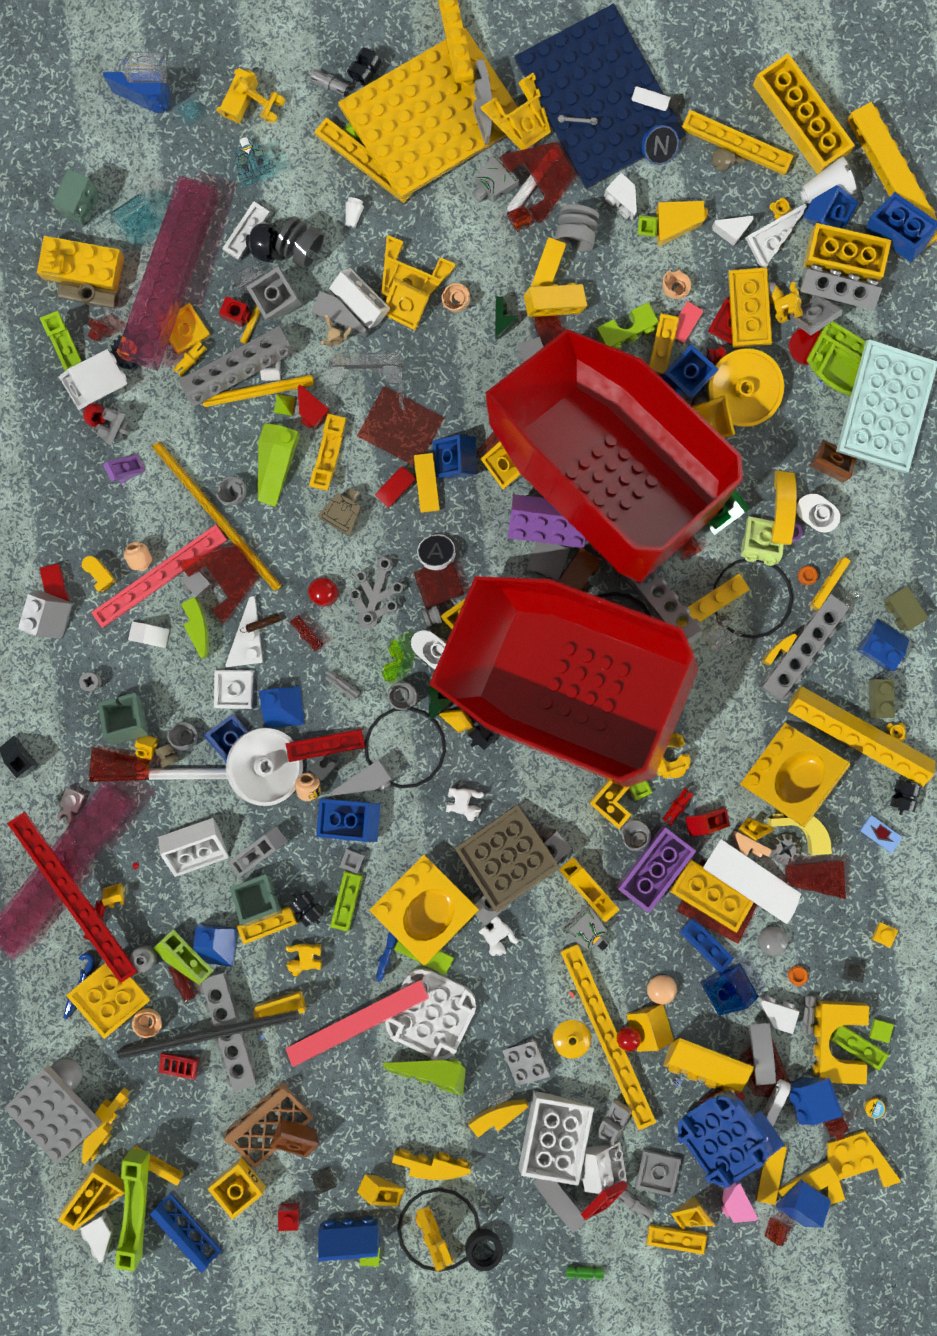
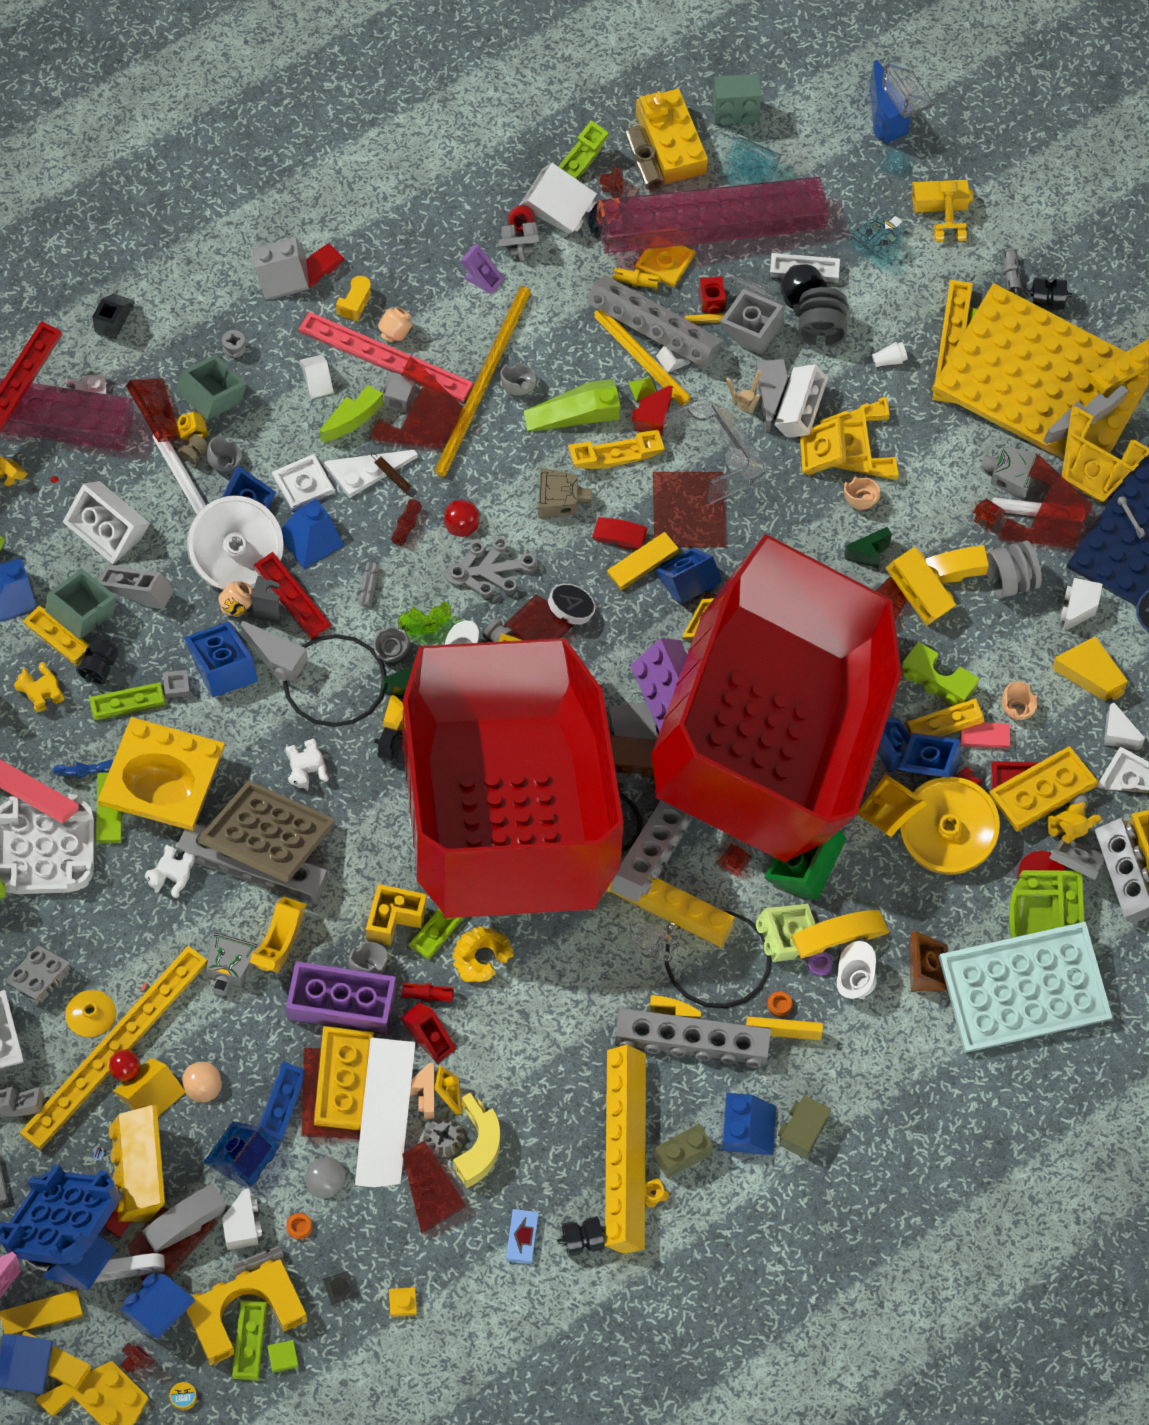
camera: 60 degrees right, 25 degrees down
(647, 225) = (1065, 641): lime slope -> none
(795, 774) = (536, 1091): yellow piece -> none

